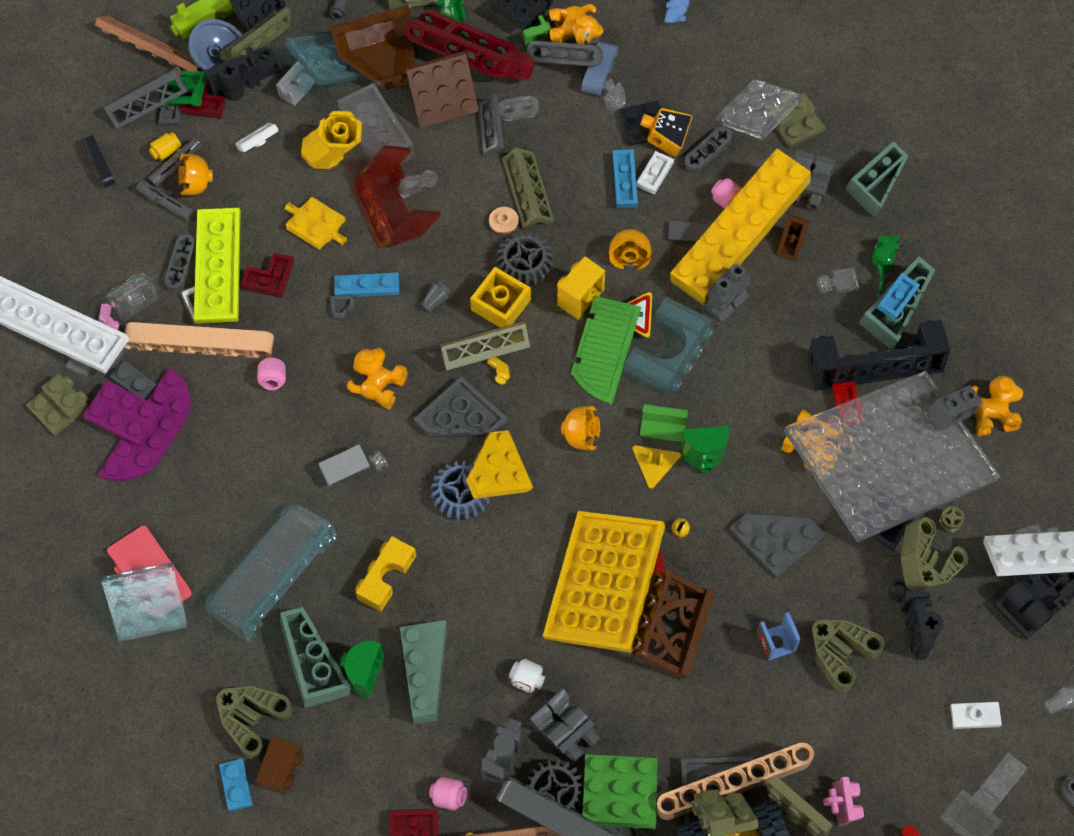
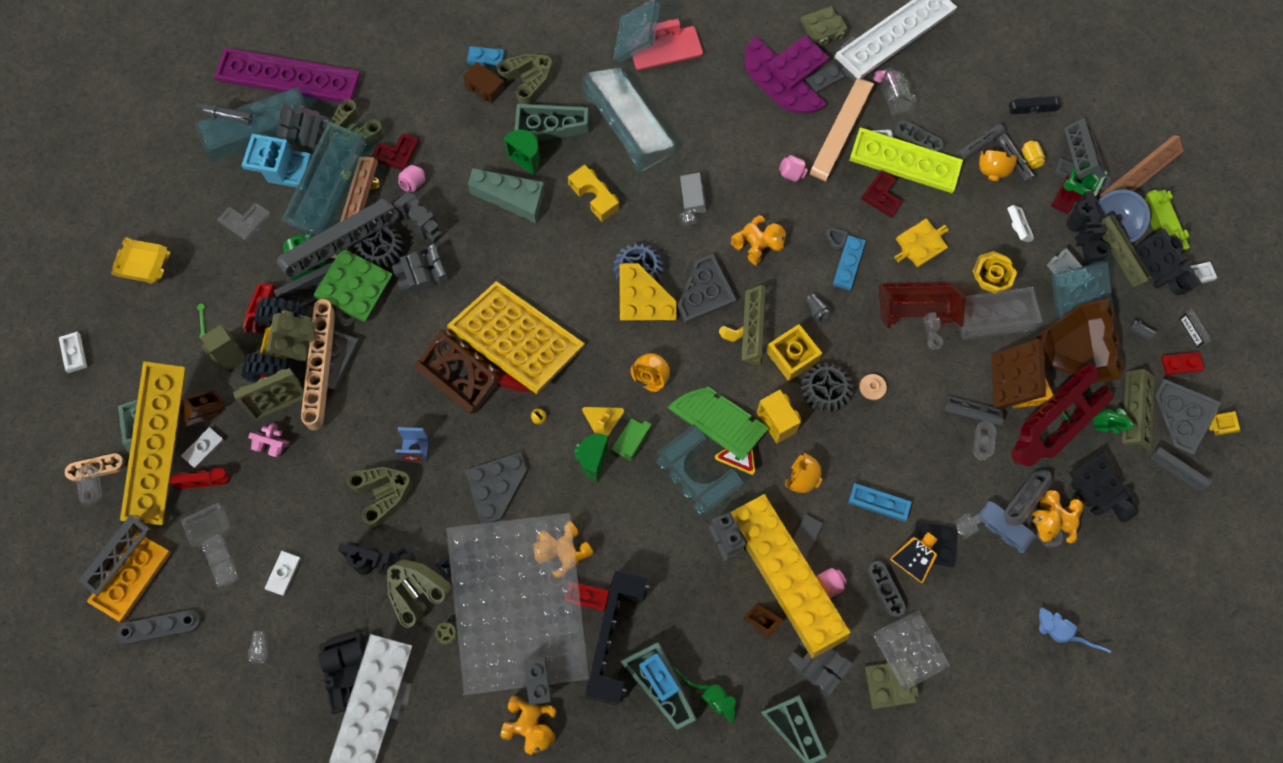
camera: 110 degrees right, 5 degrees up
(524, 187) = (901, 412): olive fence -> none
(526, 676) = (471, 259): white head -> none
(537, 33) = (1061, 483): bright green bracket -> none
(655, 172) = (877, 531): white plate -> none
(843, 280) = (706, 649): clear plate -> none

